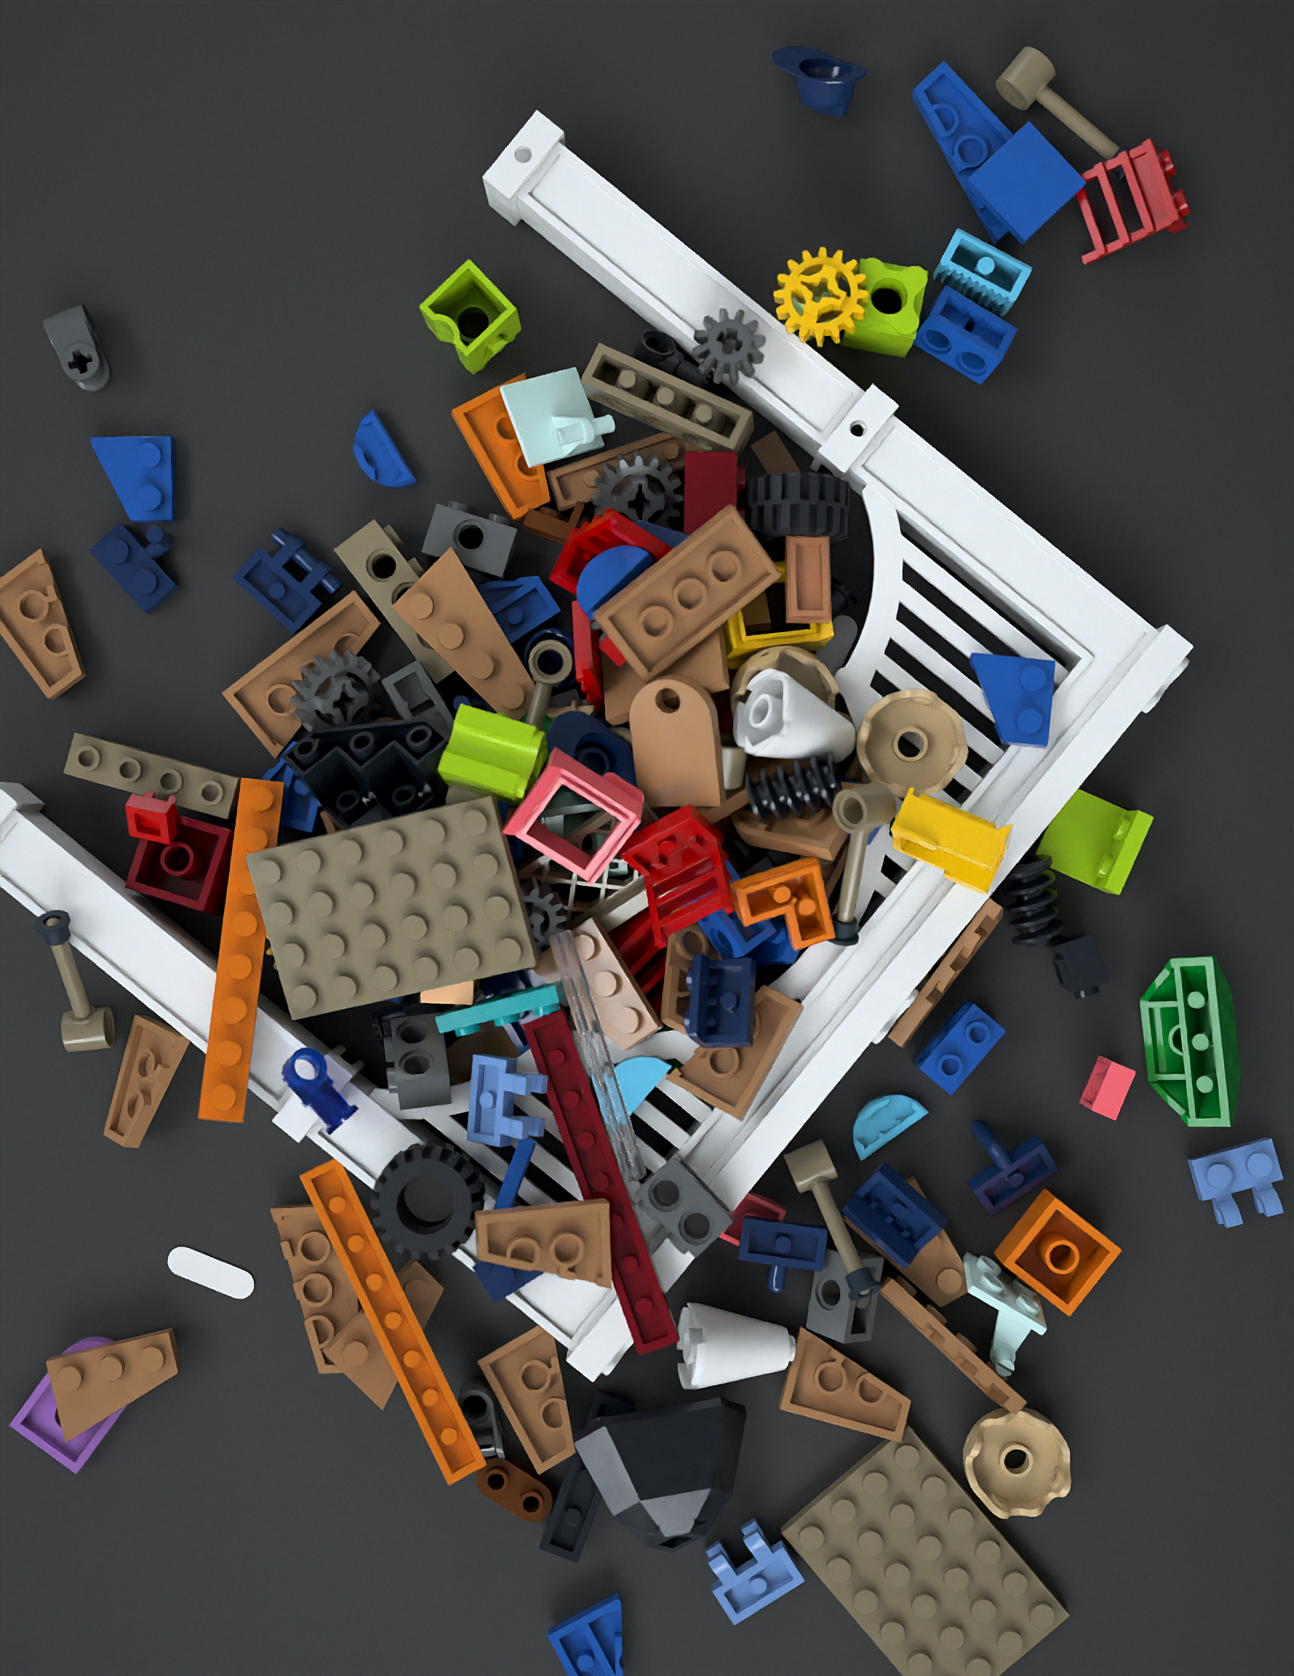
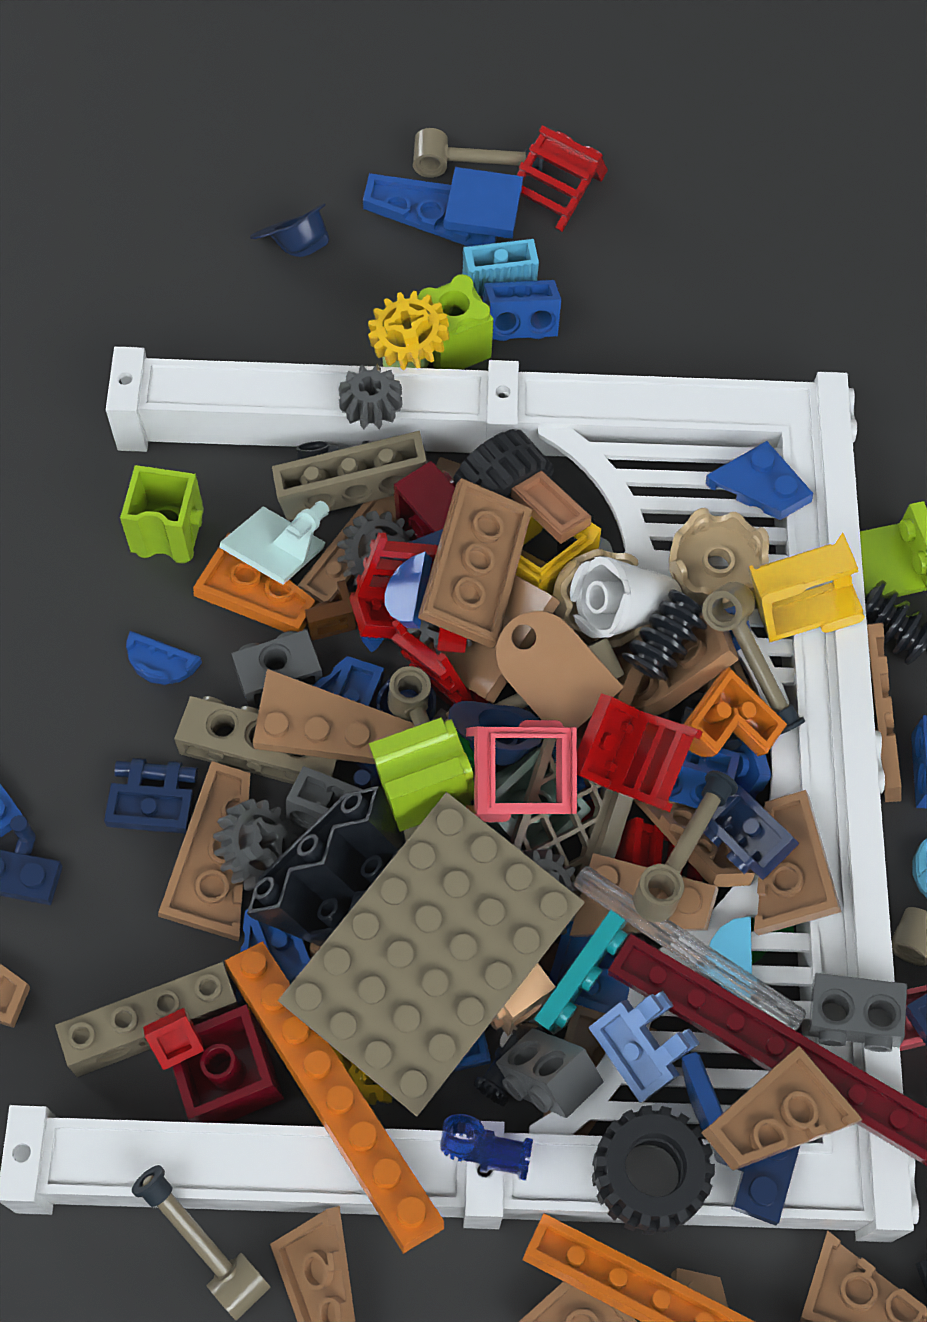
camera: 40 degrees left, 25 degrees down
(719, 954) = (667, 875): none -> dark tan piece

